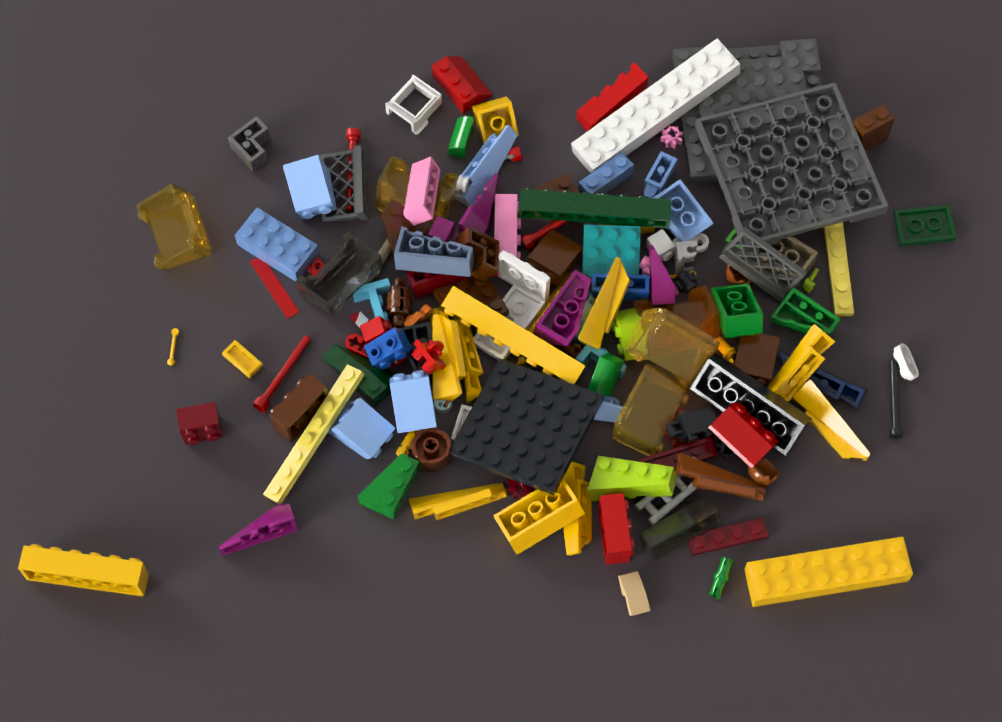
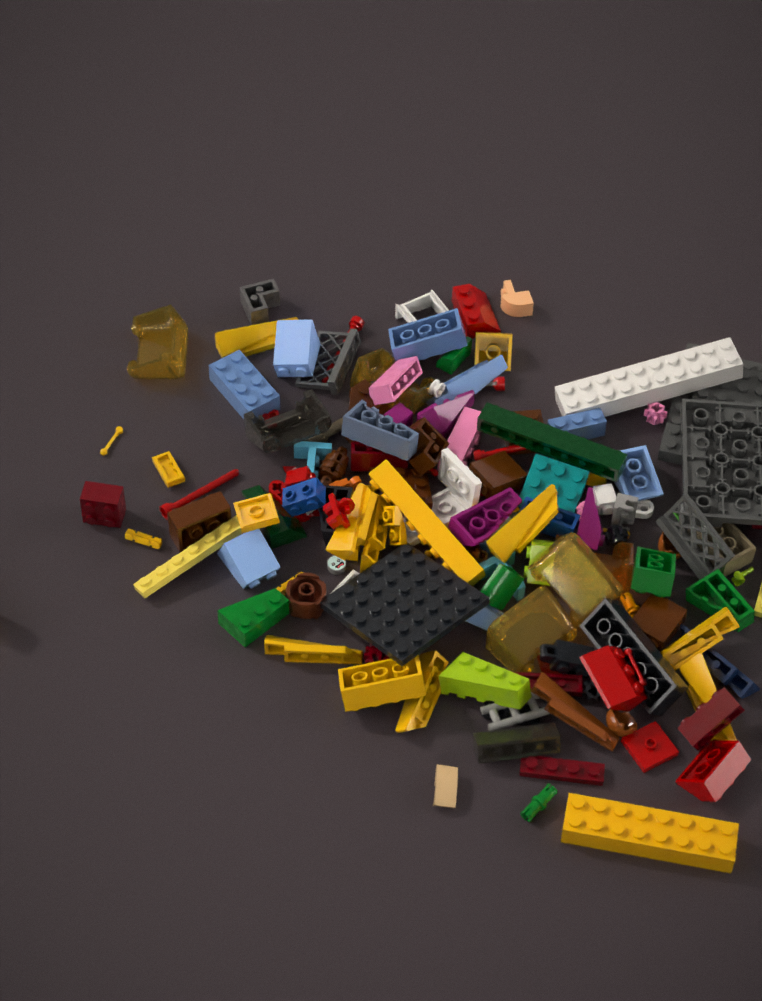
camera: 20 degrees right, 15 degrees down
(251, 441) = (143, 538): none -> yellow axle
(261, 188) = (247, 339): none -> yellow wedge
(269, 526) = (125, 611): magenta wedge -> none
(274, 287) = (226, 423): red sticker -> none
(353, 384) = (256, 513): none -> yellow plate
(412, 401) = (306, 547): light blue slope -> none
(432, 130) = (428, 336): none -> medium blue brick
(480, 341) = (393, 518): none -> yellow slope
(494, 60) = (515, 303): none -> light nougat brick
(613, 97) = (611, 360): red wedge -> none
(615, 528) = (451, 721): red brick -> none
(659, 175) = (631, 436): medium blue brick -> none
(748, 404) = (628, 652): none -> red hinge
(795, 484) = (649, 746): none -> red plate
(840, 441) = (710, 718): none -> dark red brick
(859, 488) = (714, 769): none -> red slope

